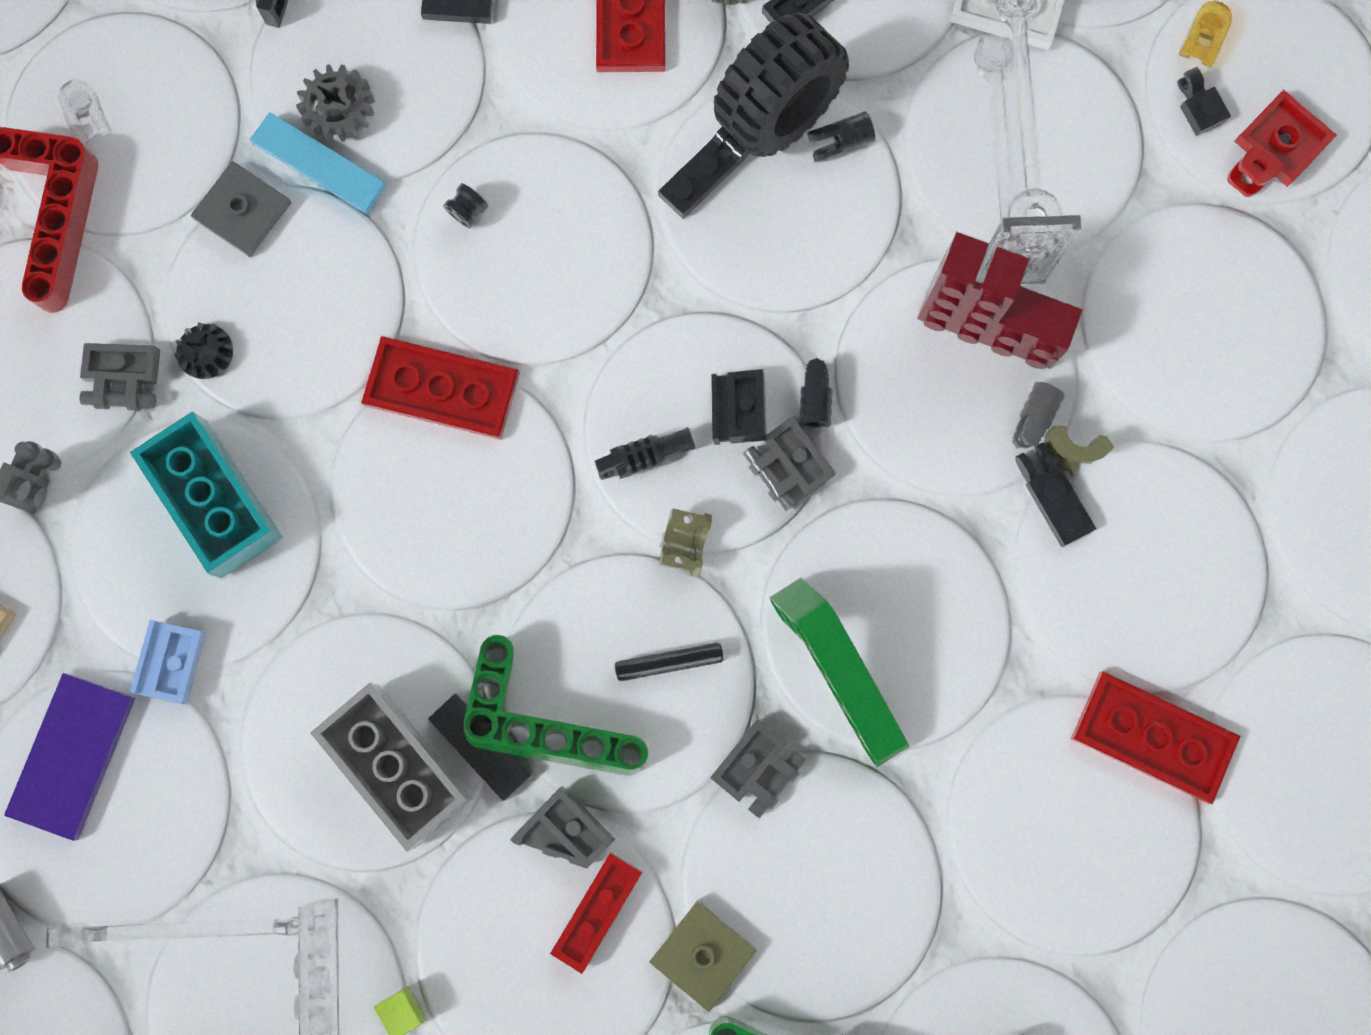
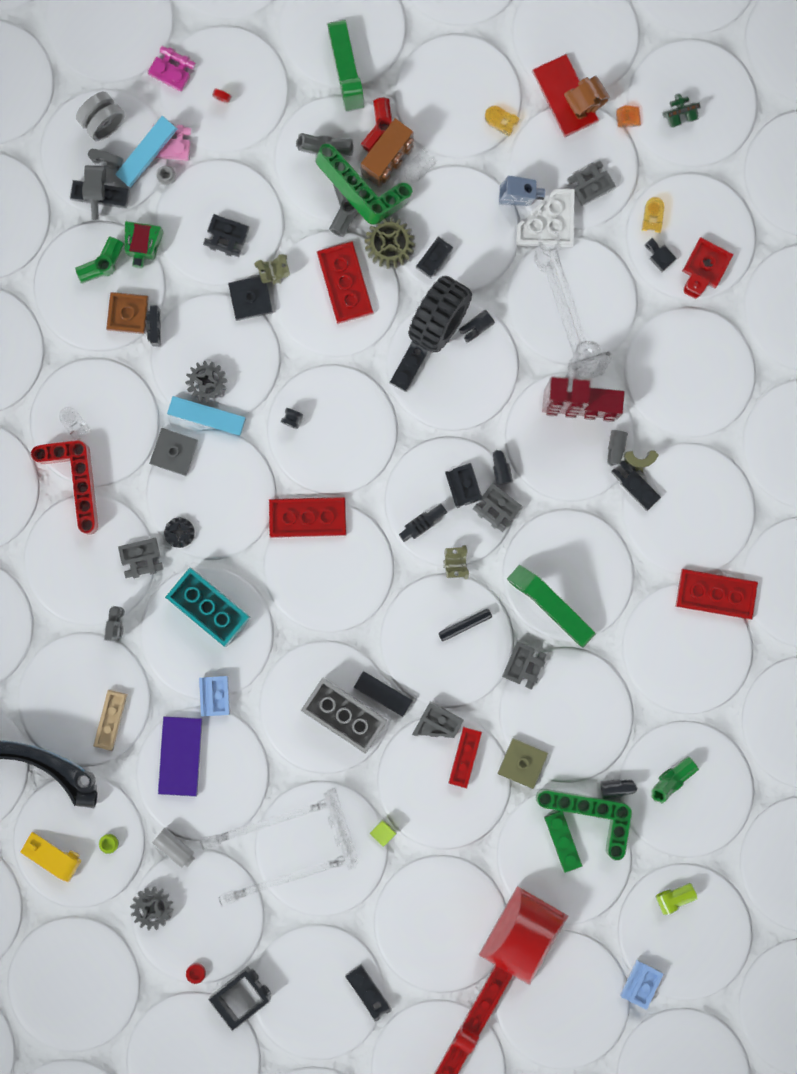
camera: 15 degrees left, 5 degrees up
(538, 728) = (410, 677): green beam -> none

